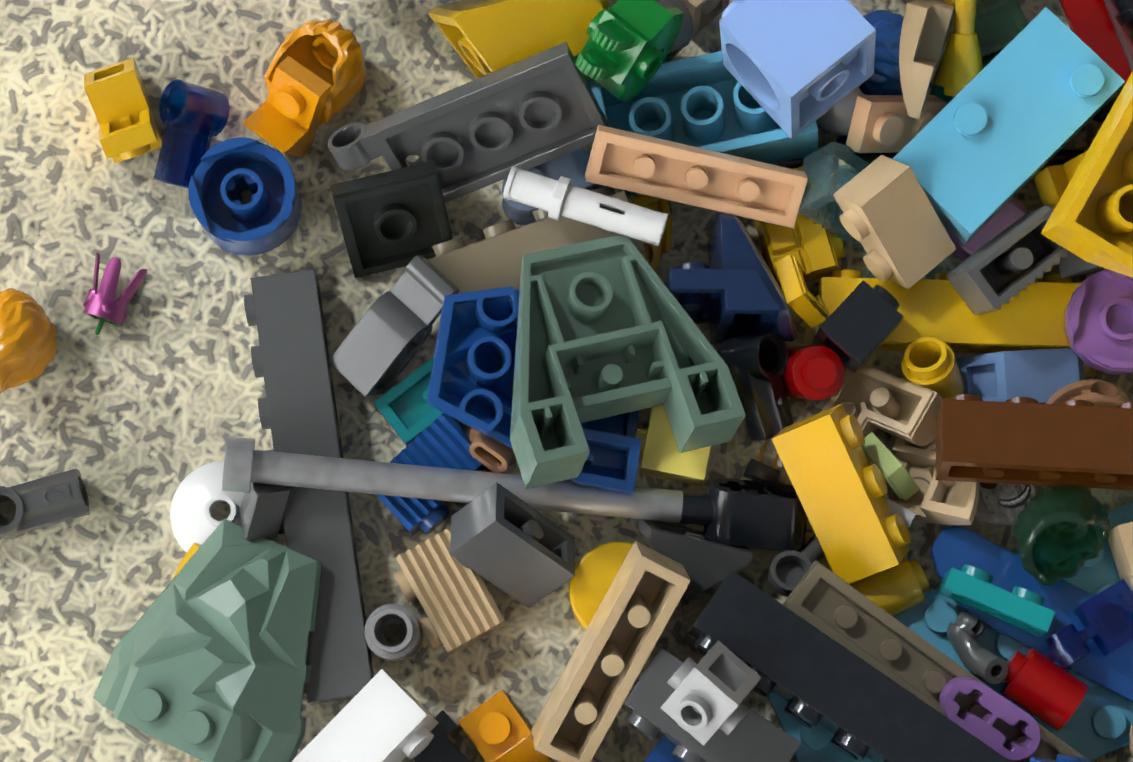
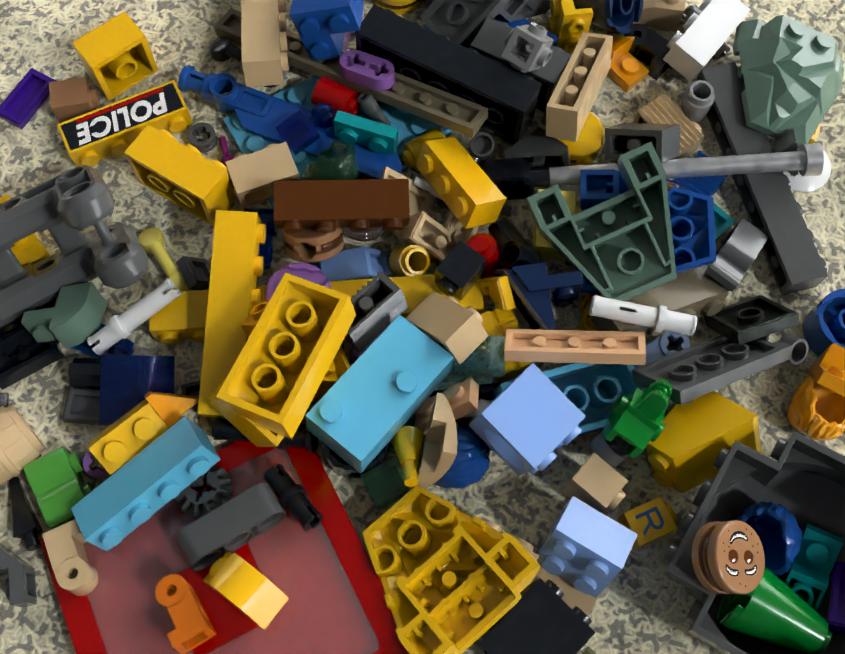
camera: 170 degrees right, 10 degrees down
(893, 471) = (432, 206): yellowish green tile -> none

